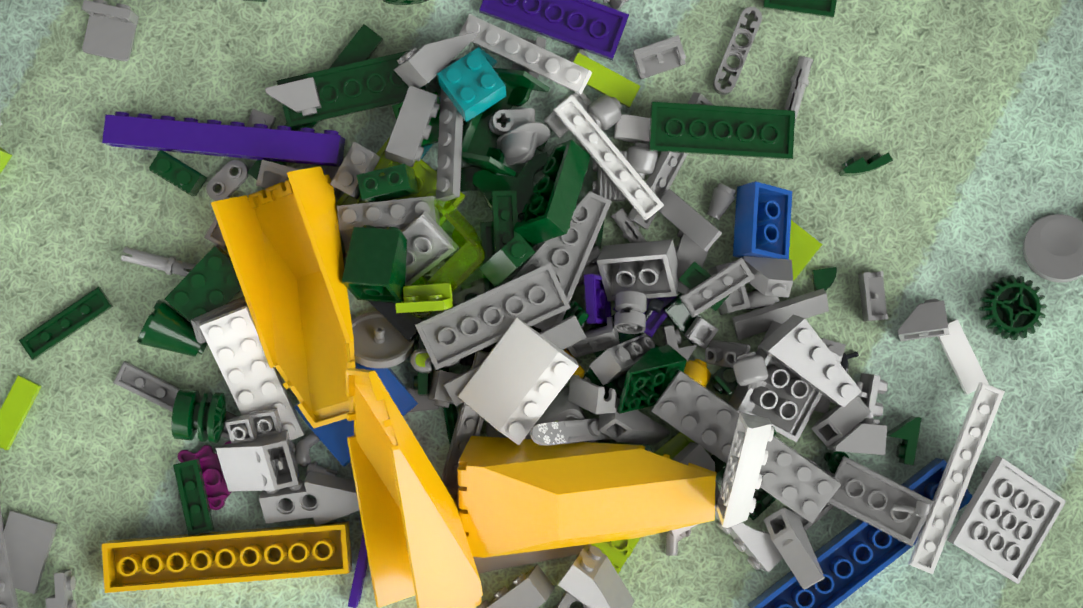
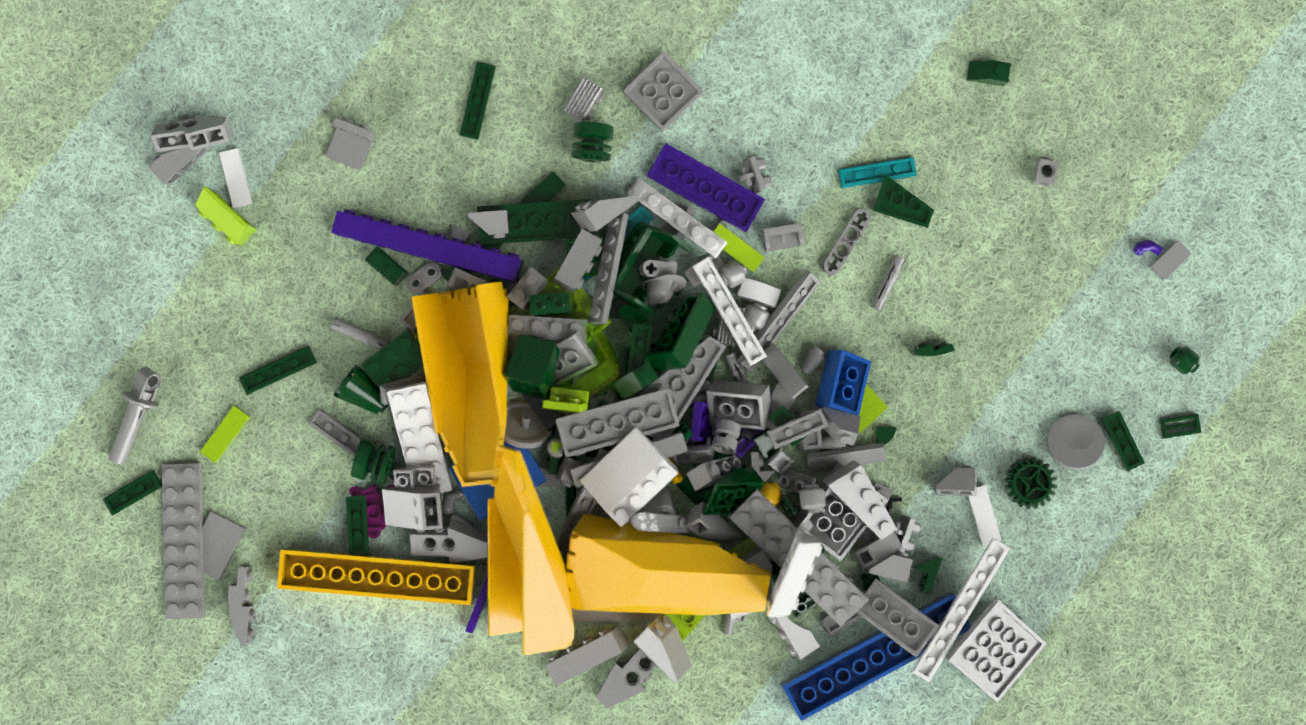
camera: 10 degrees right, 0 degrees up
(472, 84) = (631, 237): teal brick -> none
(591, 396) = (683, 497): light grey hinge -> none
(721, 130) = (822, 304): dark green plate -> none
(794, 546) = (824, 642): light grey slope -> none
(872, 296) = (921, 455): light grey hinge -> none
(921, 509) = (928, 629): light grey hand -> none

